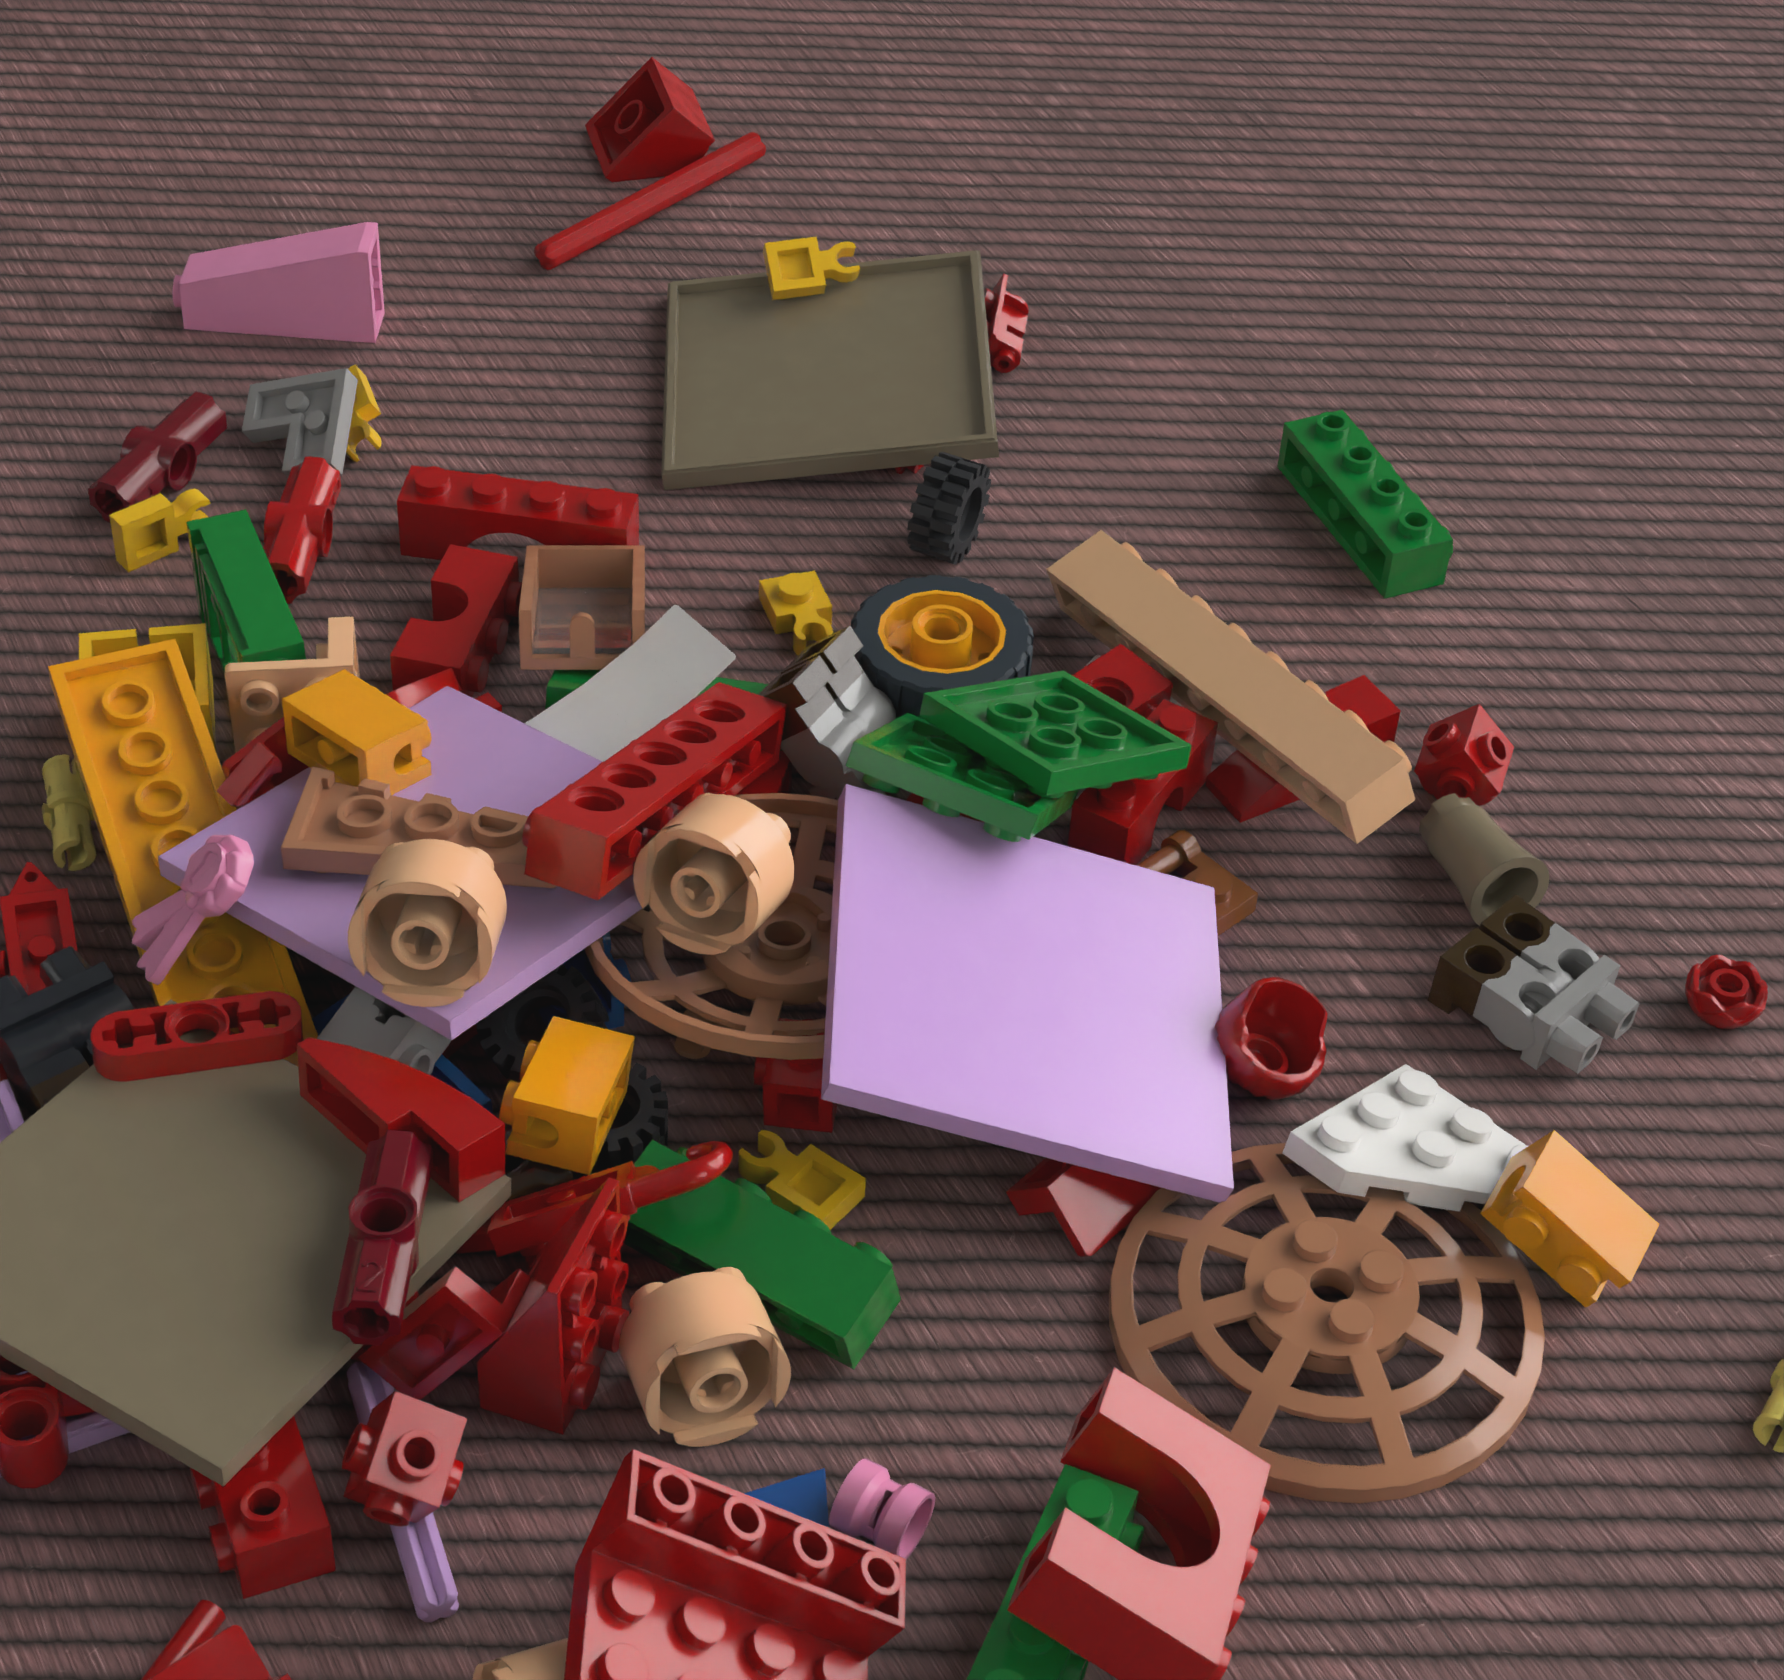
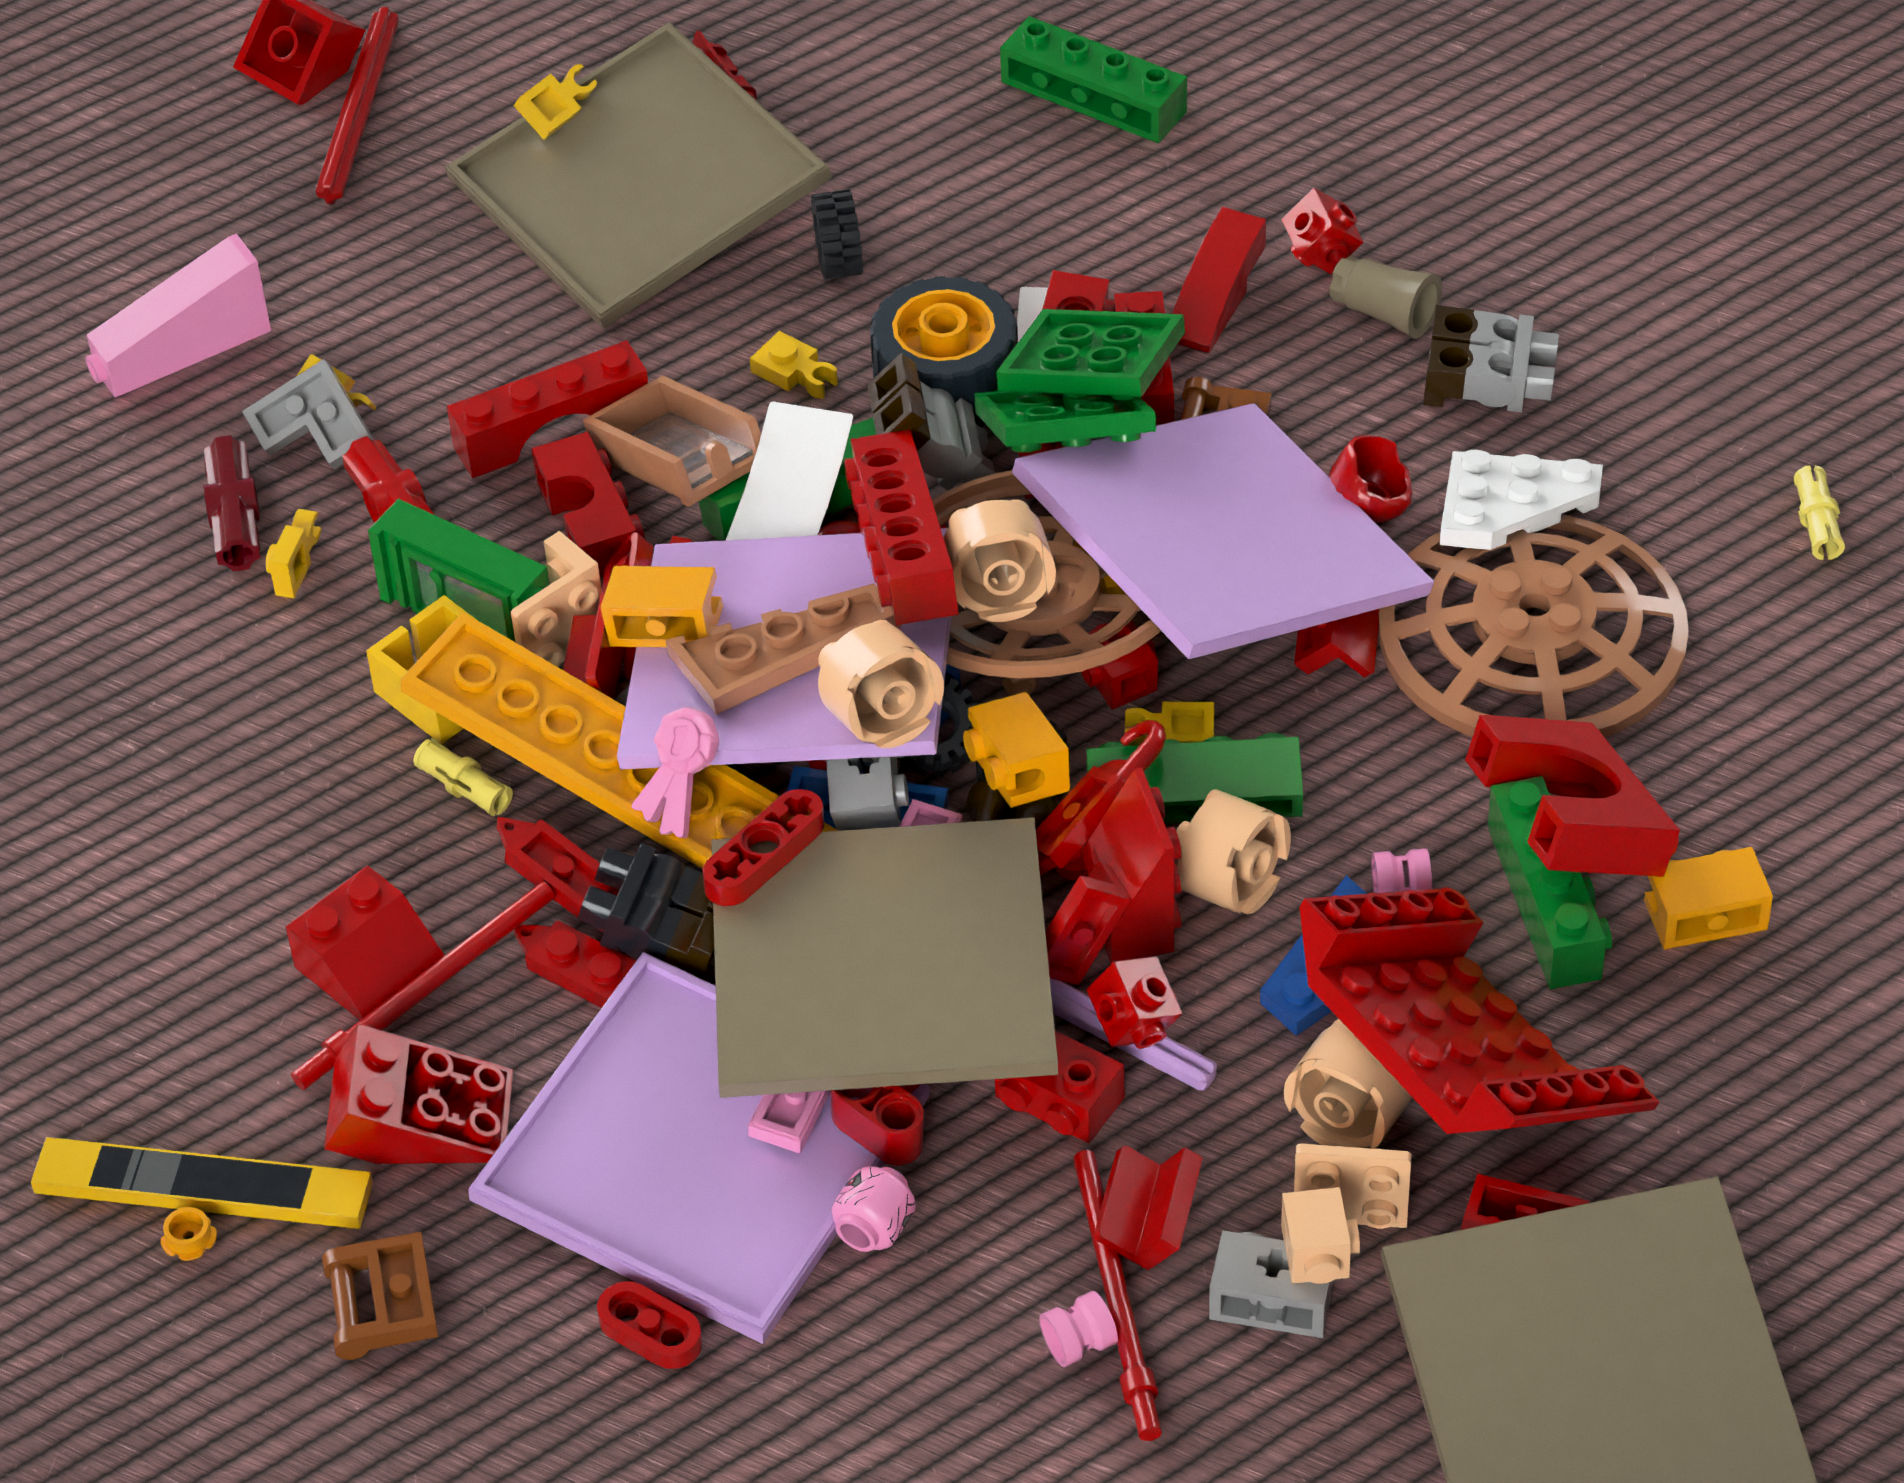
camera: 30 degrees left, 5 degrees up
(251, 776) = (621, 671): red tile -> none
(374, 1094) = (944, 816): red slope -> none
(383, 1238) = (1017, 885): dark red piece -> none
(1253, 696) = (1136, 256): light nougat brick -> none
(1569, 1218) = (1631, 488): light orange brick -> none
(1726, 992) = (1595, 299): red plate -> none

